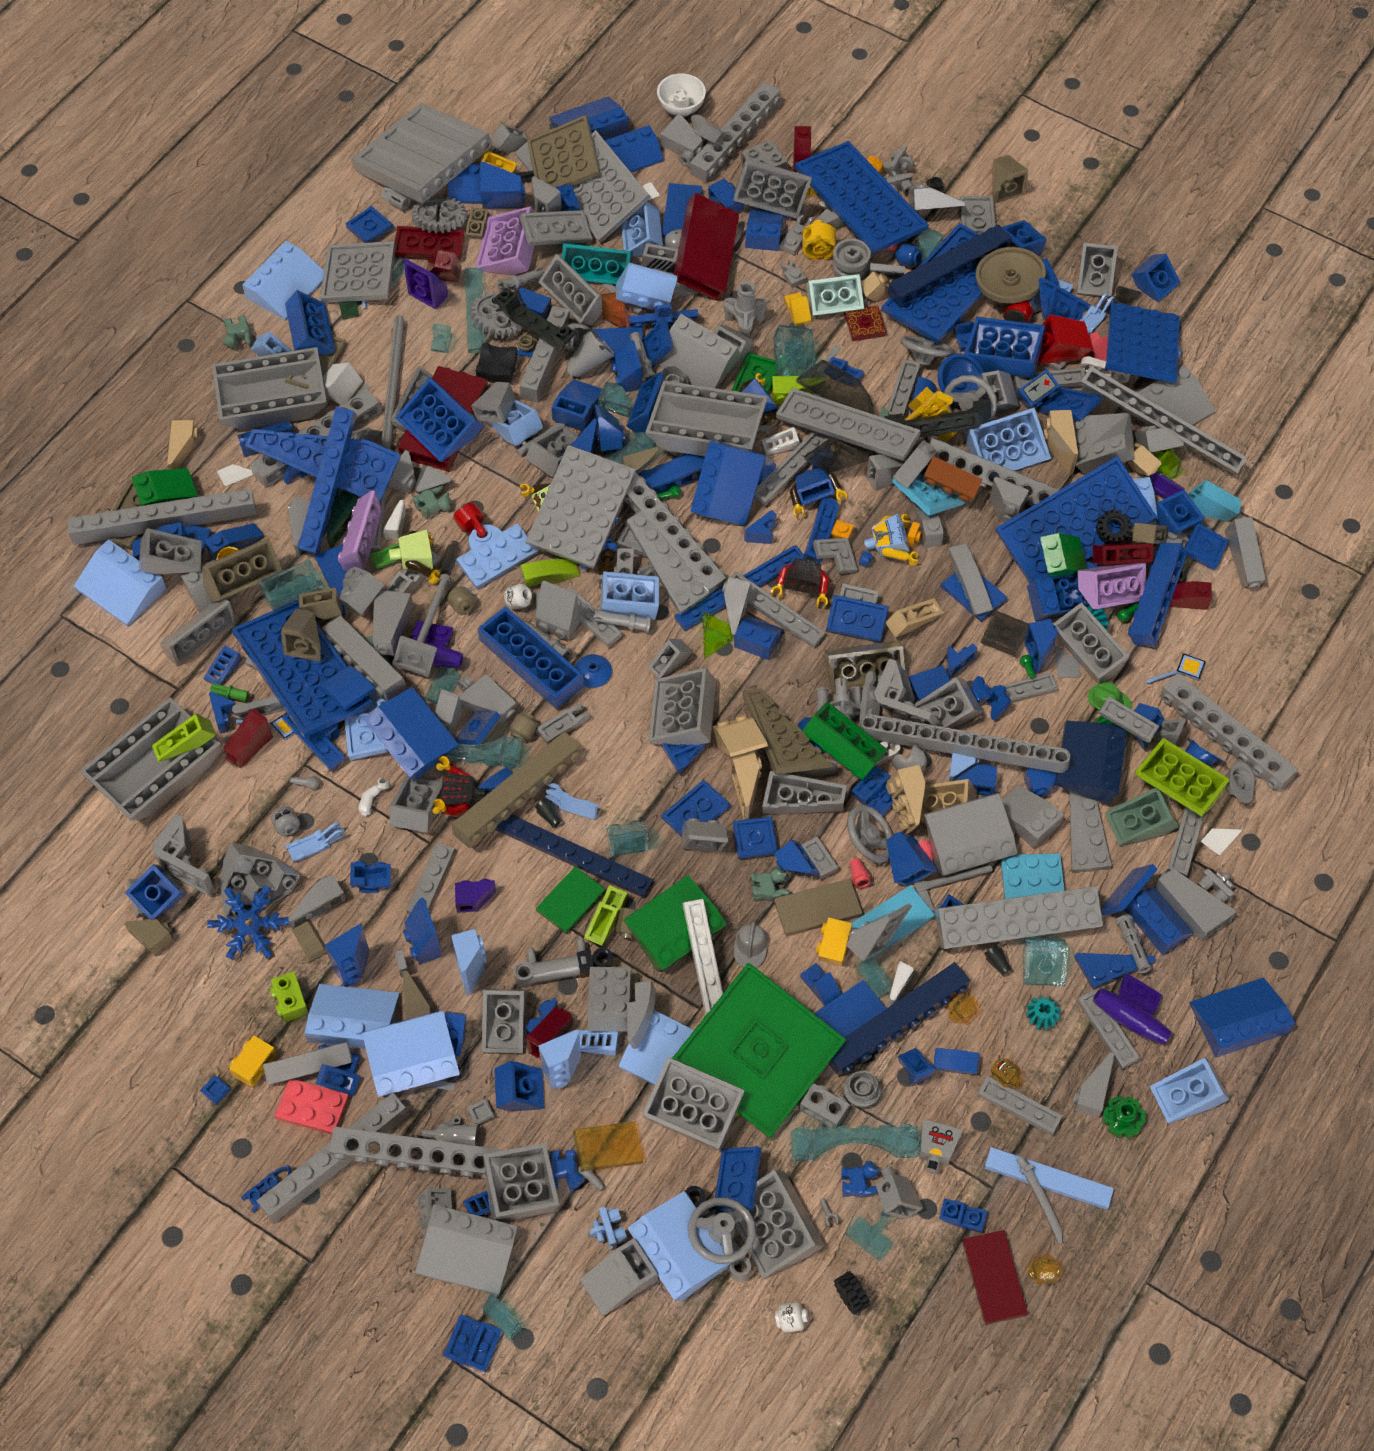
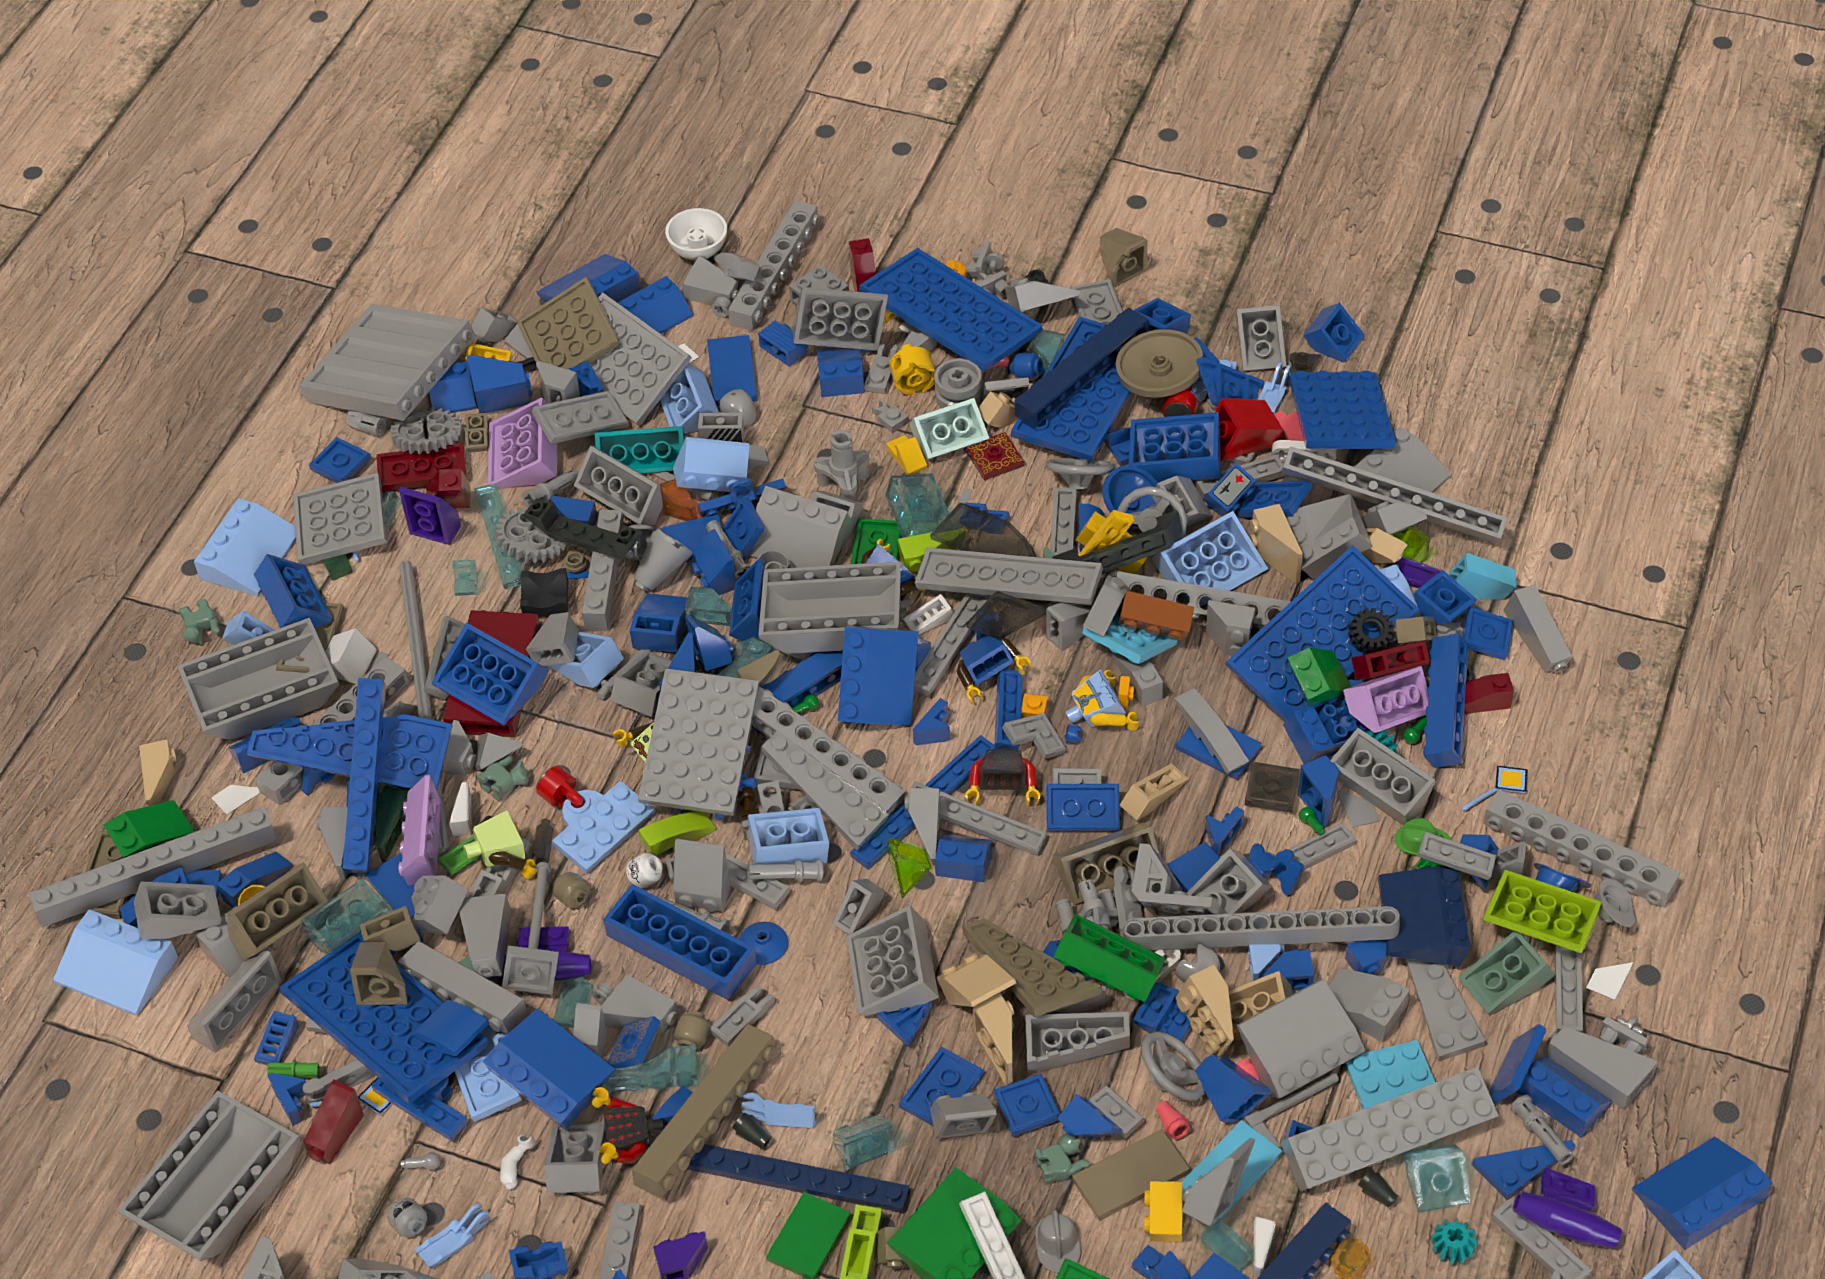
camera: 10 degrees left, 10 degrees down
(185, 737) = (250, 1137): lime slope -> none
(706, 246) = (774, 403): dark red brick -> none

